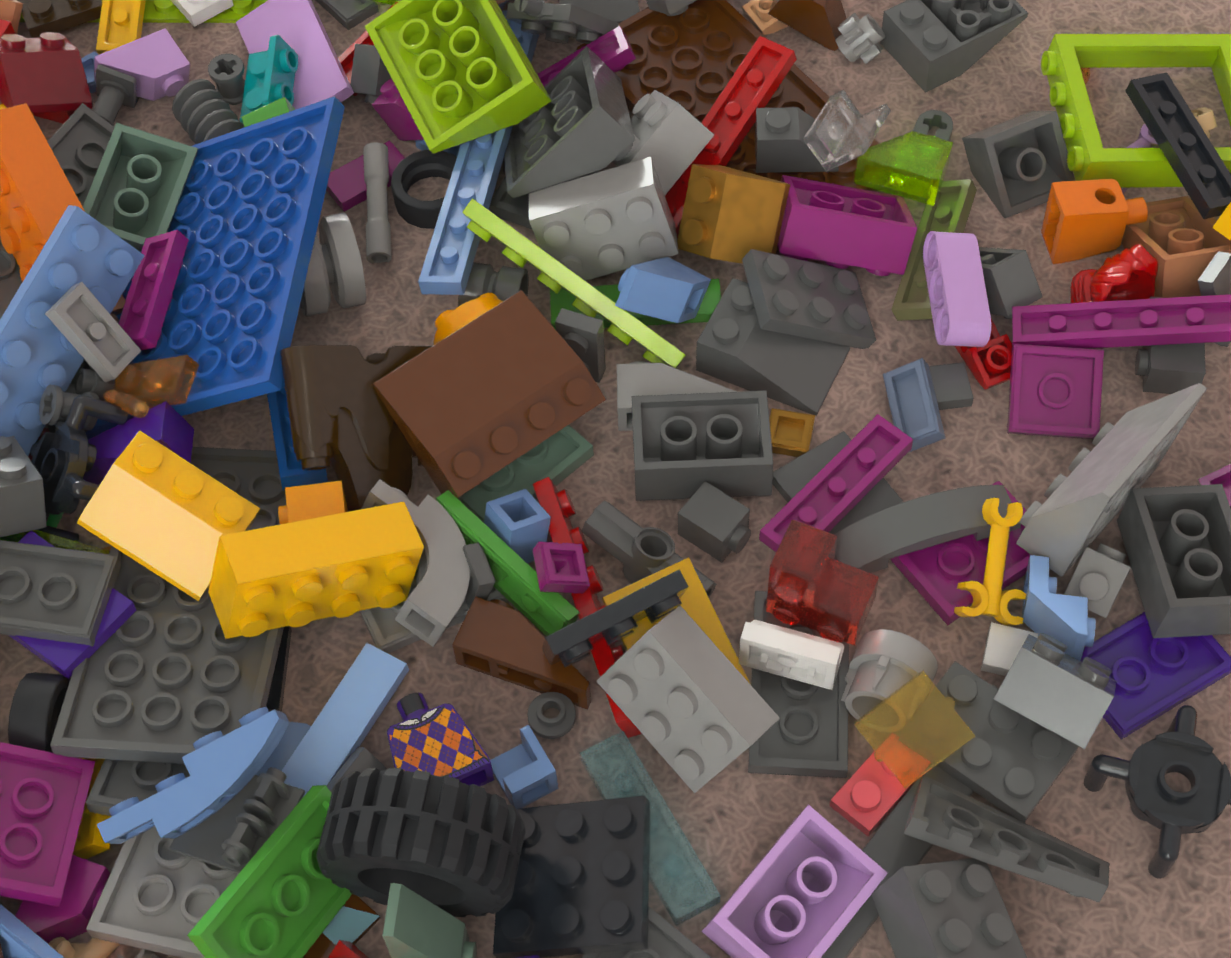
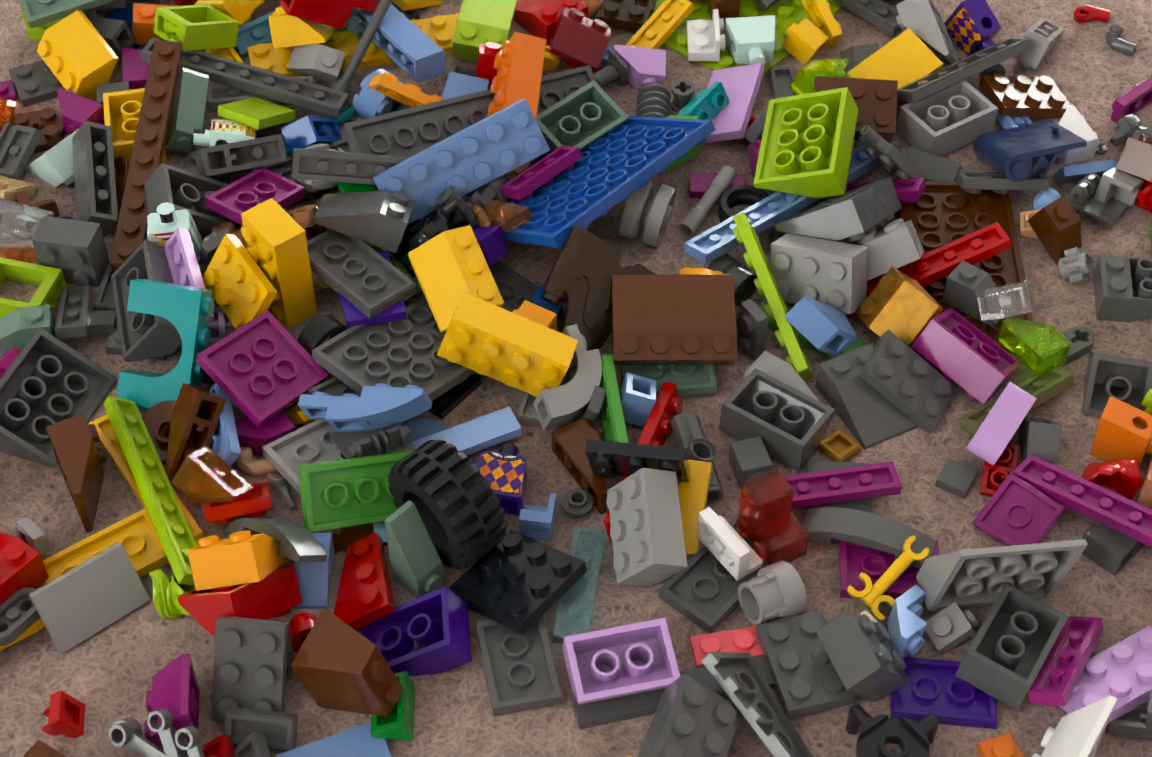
camera: 35 degrees right, 10 degrees down
(93, 332) = (491, 170): light grey plate -> none
(560, 567) = (638, 426): magenta tile -> none
(914, 403) = (925, 474): sand blue tile -> none
(914, 729) = (760, 622): clear yellow piece -> none

